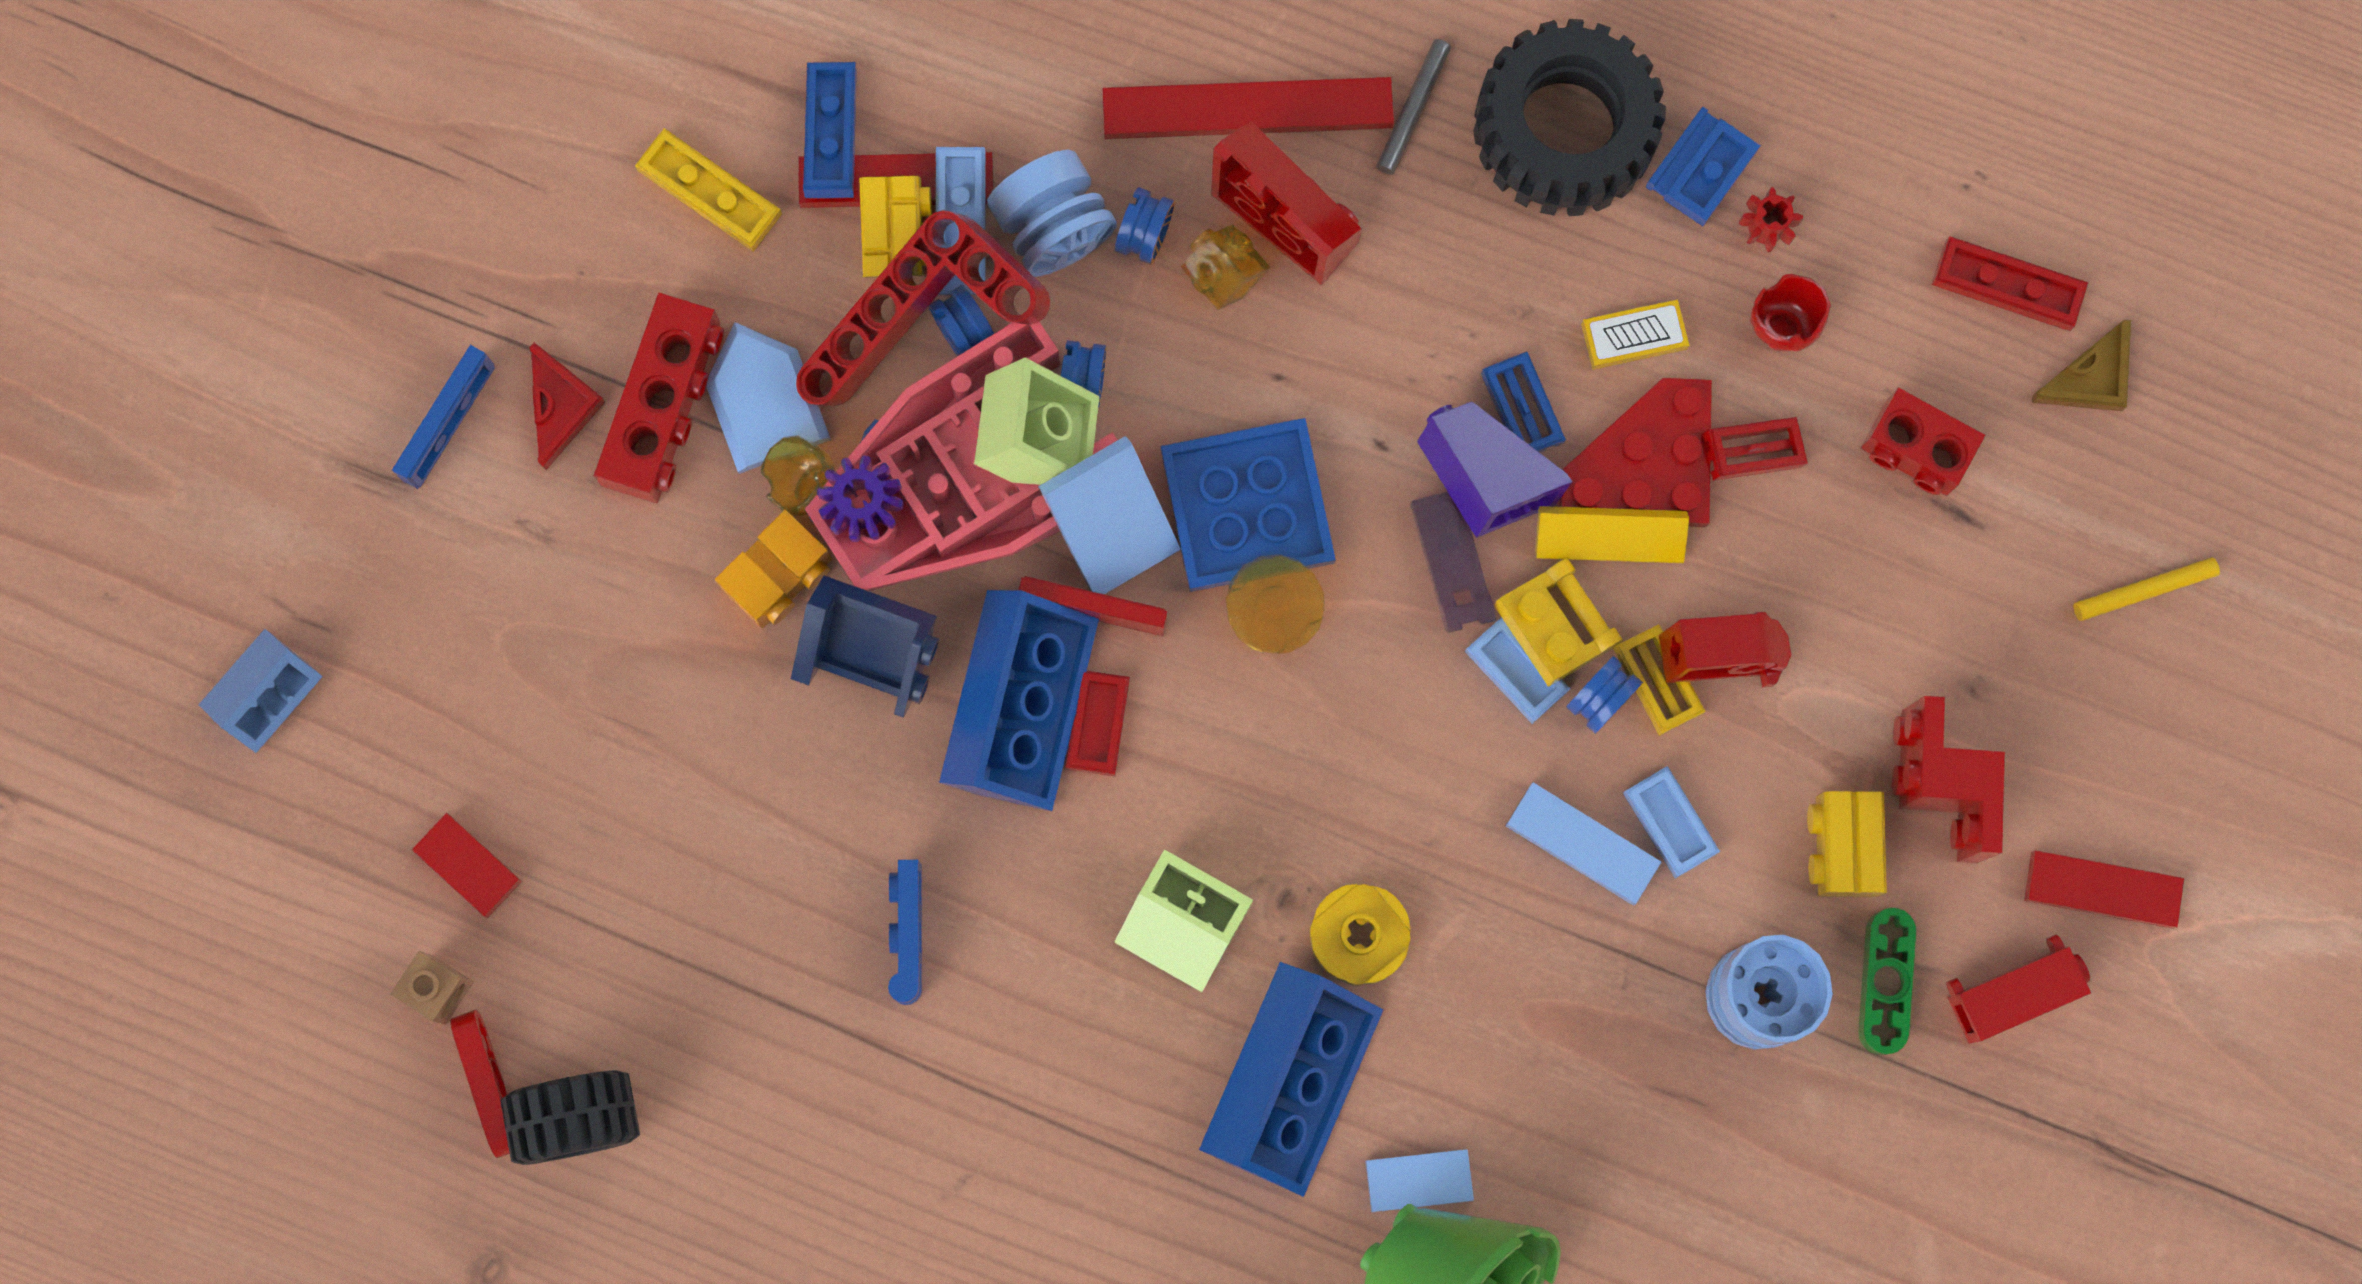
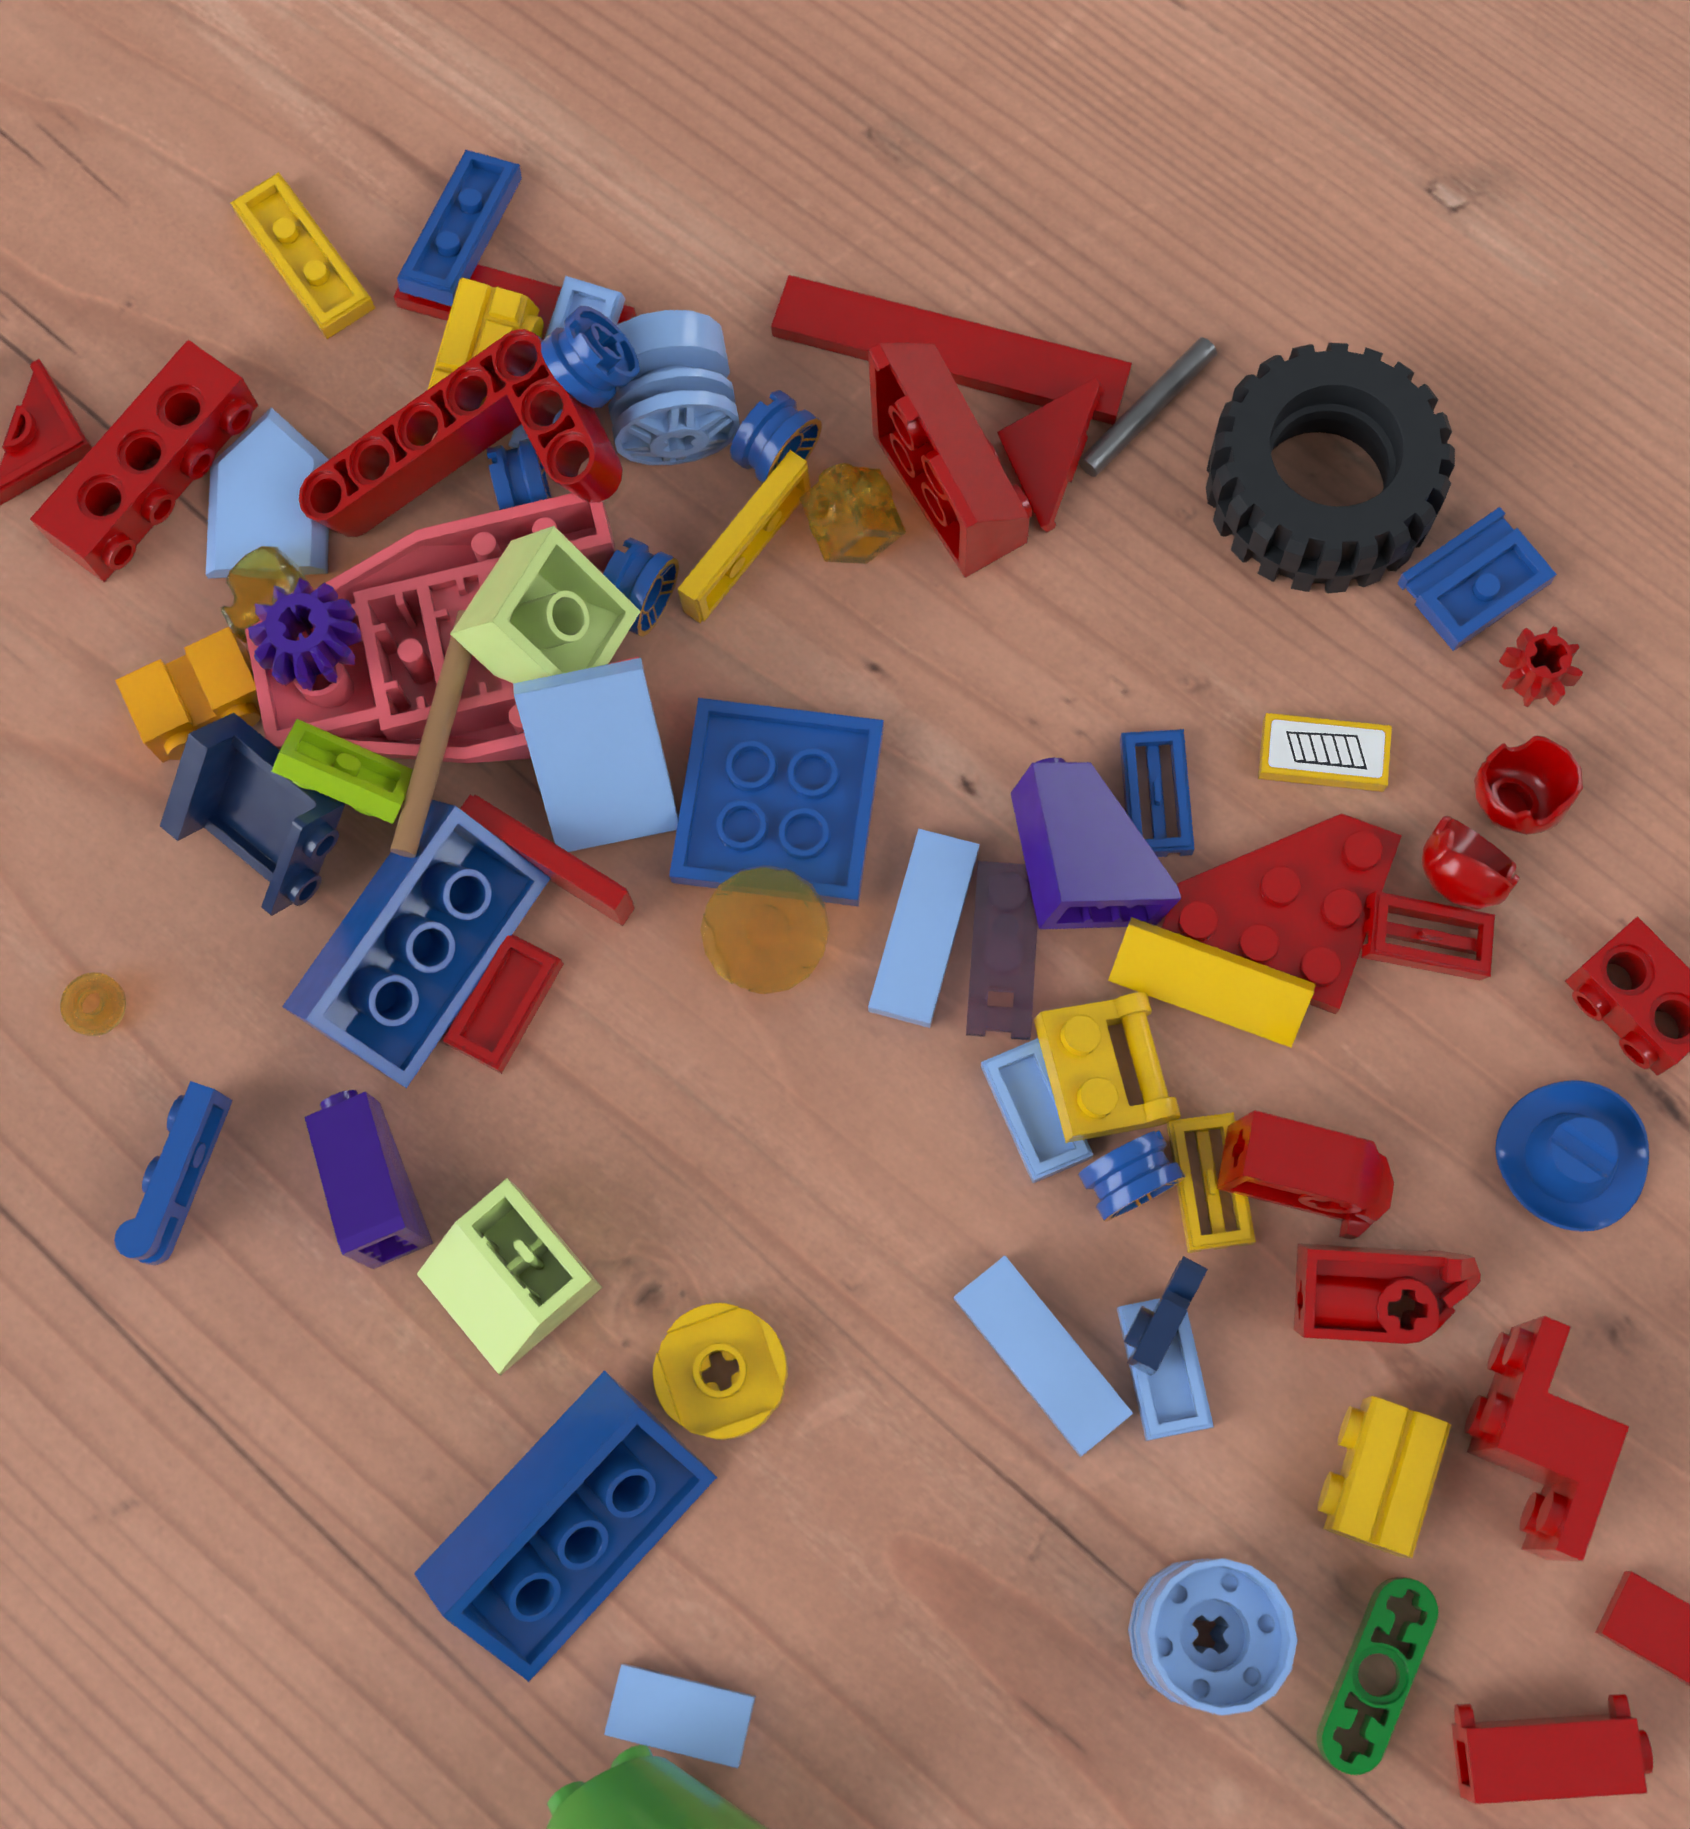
camera: 30 degrees right, 5 degrees down
(799, 842) = (105, 1016): none -> clear yellow plate
(929, 592) = (343, 771): none -> lime plate
(986, 548) = (432, 749): none -> medium nougat bar
(999, 216) = (590, 357): none -> blue wheel
(1052, 884) = (365, 1181): none -> dark purple slope
(1149, 309) = (744, 538): none -> yellow tile
(1351, 165) = (1049, 446): none -> red tile
(1388, 563) = (923, 928): none -> light blue tile
(1660, 797) = (1154, 1330): none -> dark blue plate
(1766, 388) = (1467, 866): none -> red hair
(1782, 722) = (1348, 1291): none -> red piece
(1906, 573) = (1574, 1155): none -> blue hat

